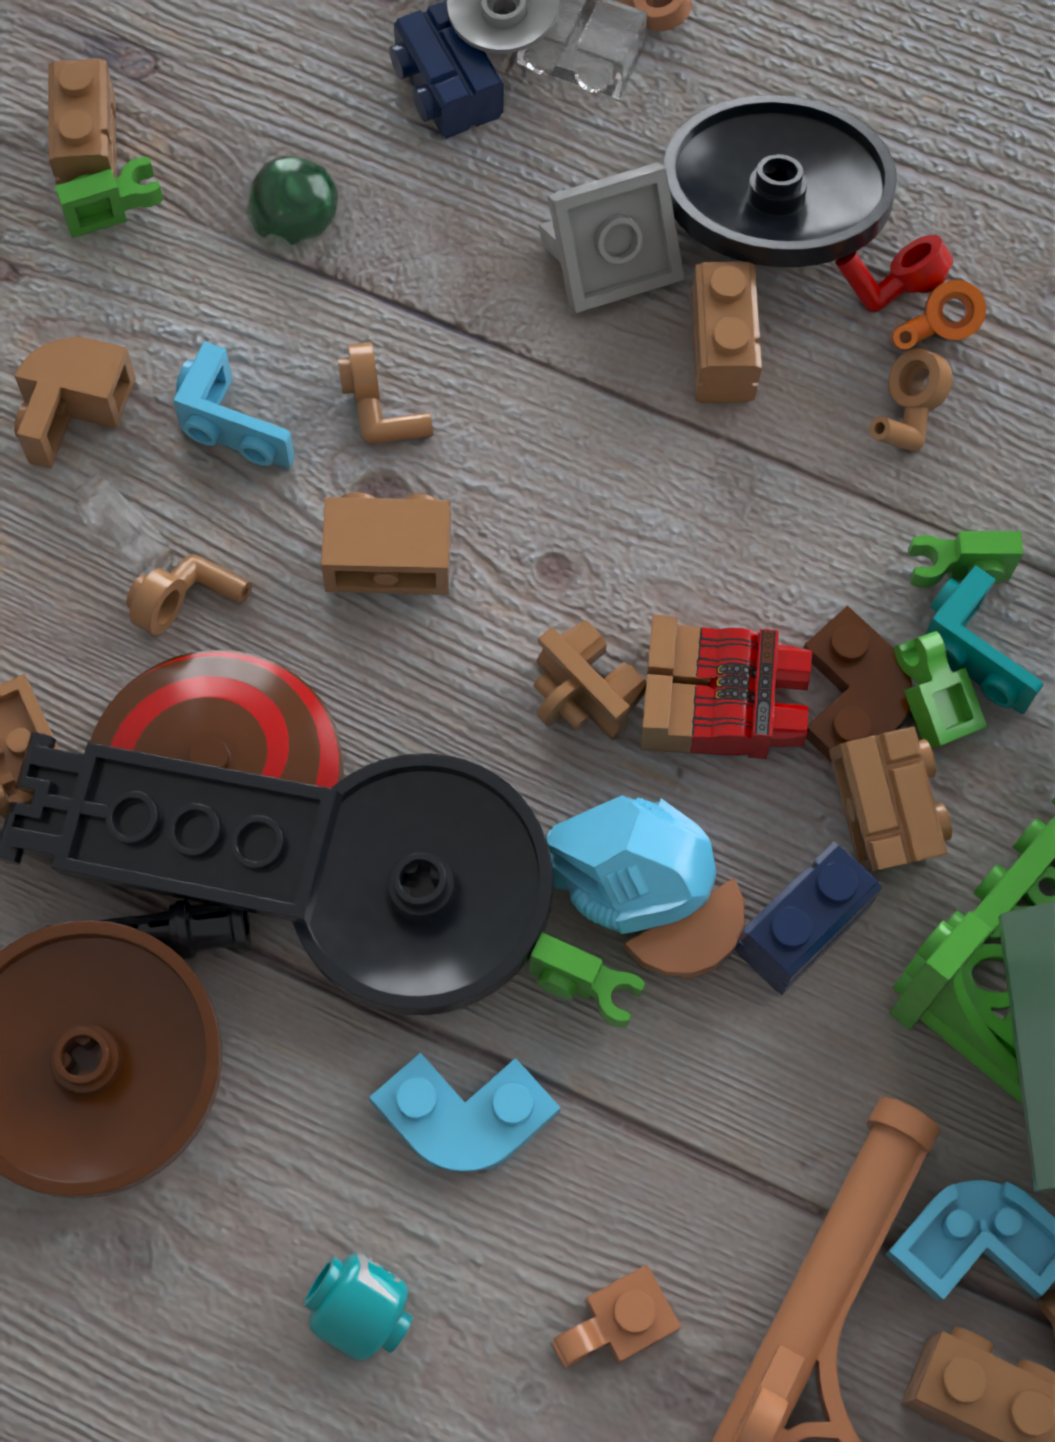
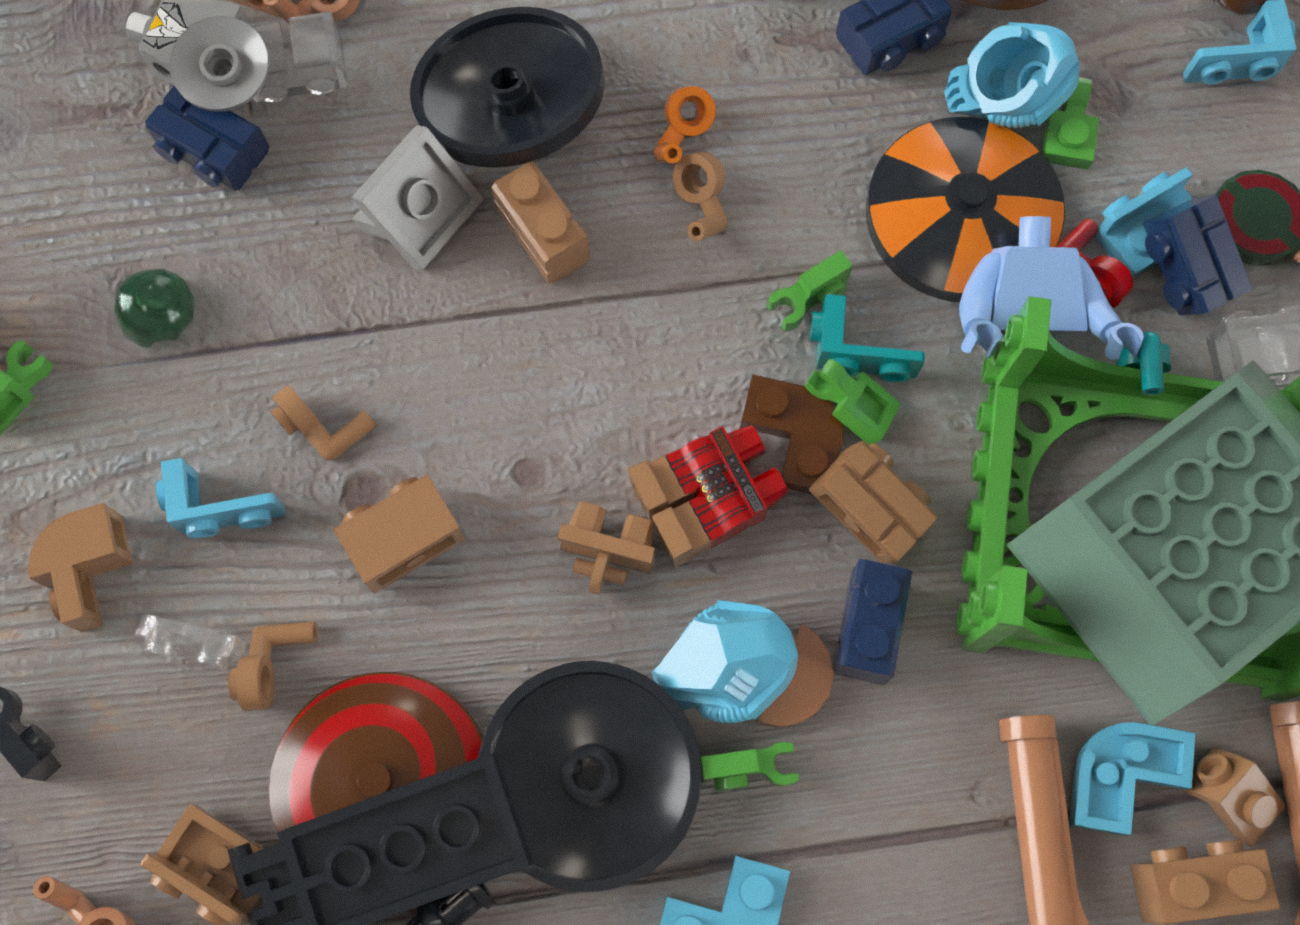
camera: 30 degrees left, 5 degrees up
(914, 269) = (643, 95): red plate -> none

